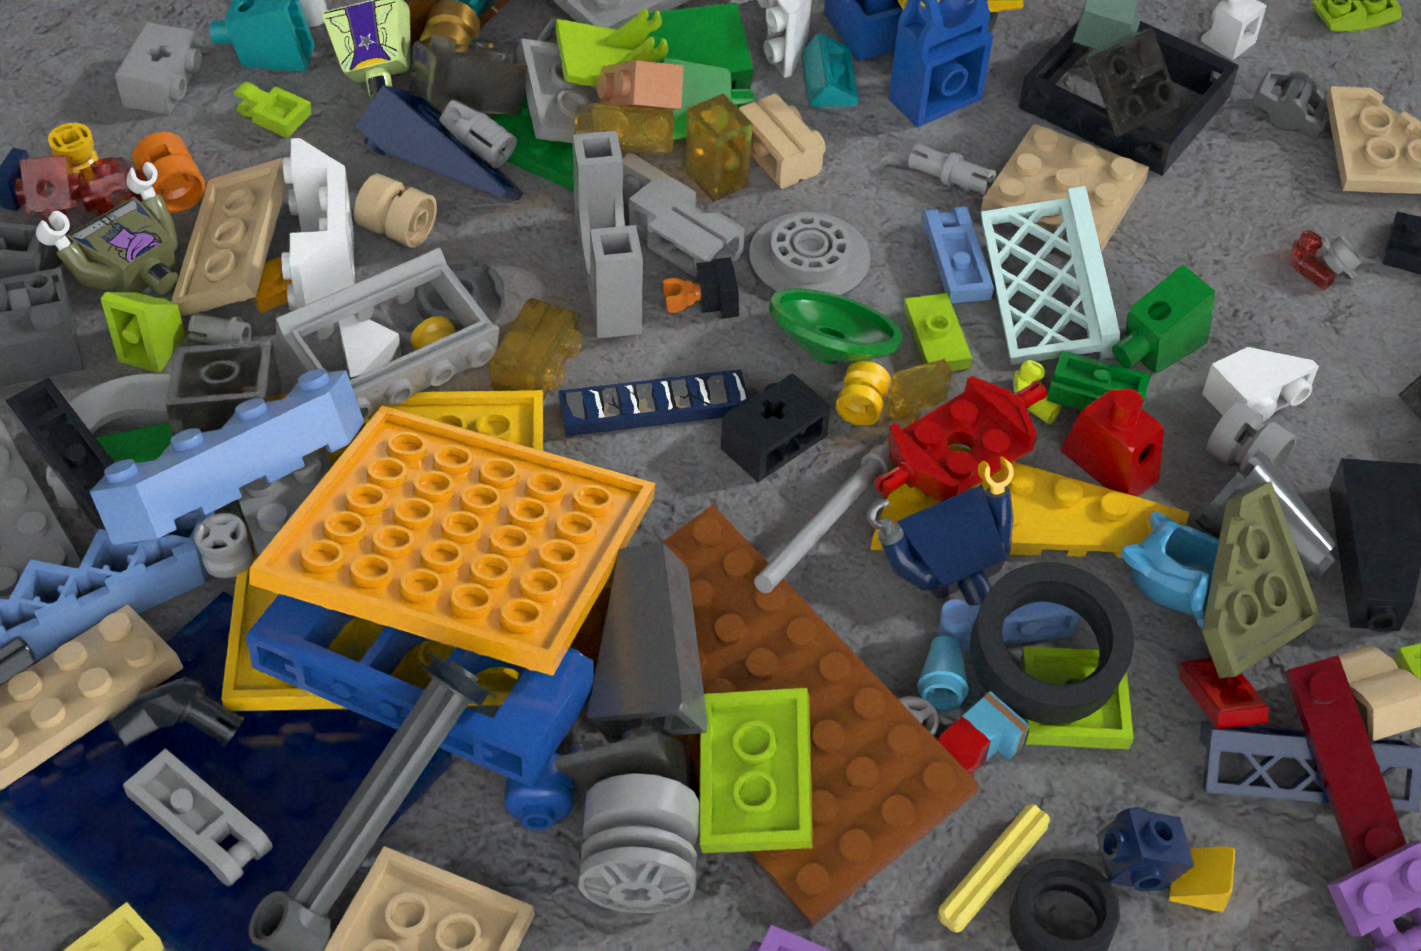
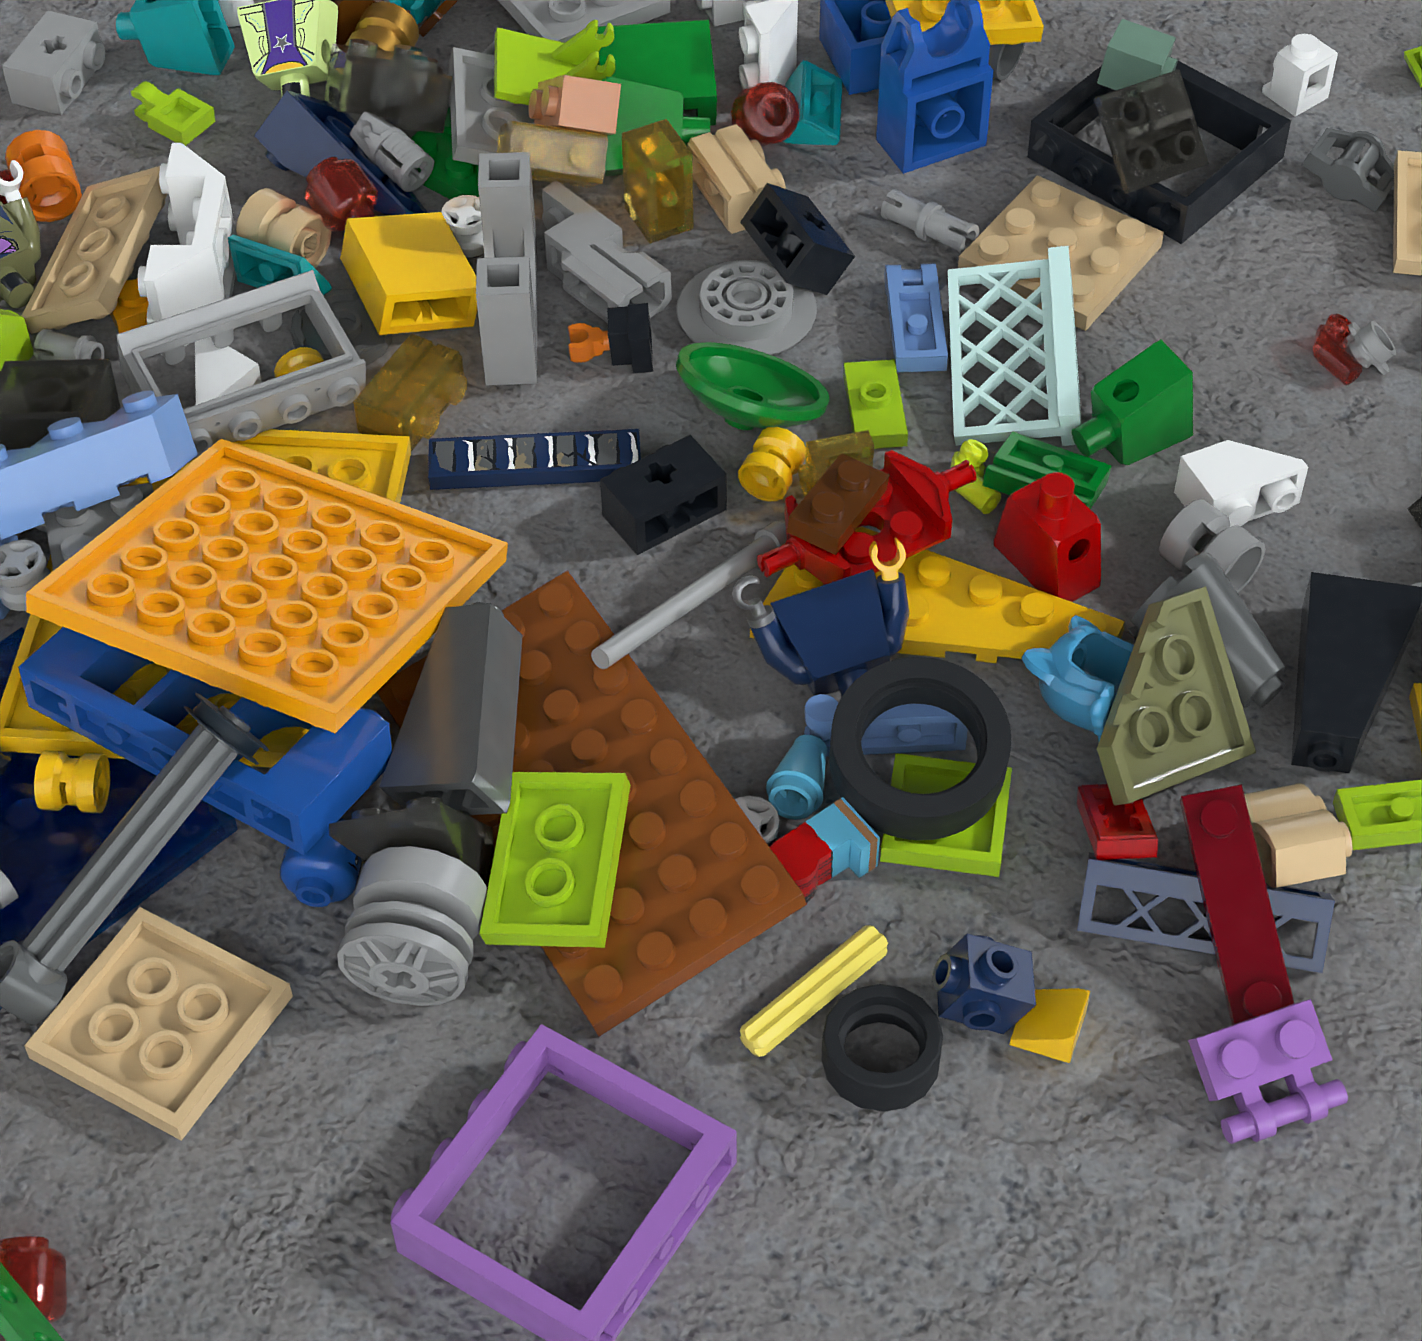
camera: 10 degrees right, 0 degrees up
(304, 735) = (72, 781): none -> yellow wheel
(388, 244) = (263, 265): none -> teal slope
(444, 175) = (340, 192): none -> clear red head
(516, 242) = (410, 272): none -> yellow brick
(554, 196) = (465, 222): none -> white wheel
(796, 81) = (766, 112): none -> clear red head
(846, 192) = (797, 239): none -> black brick
(937, 427) = (837, 503): none -> reddish brown plate

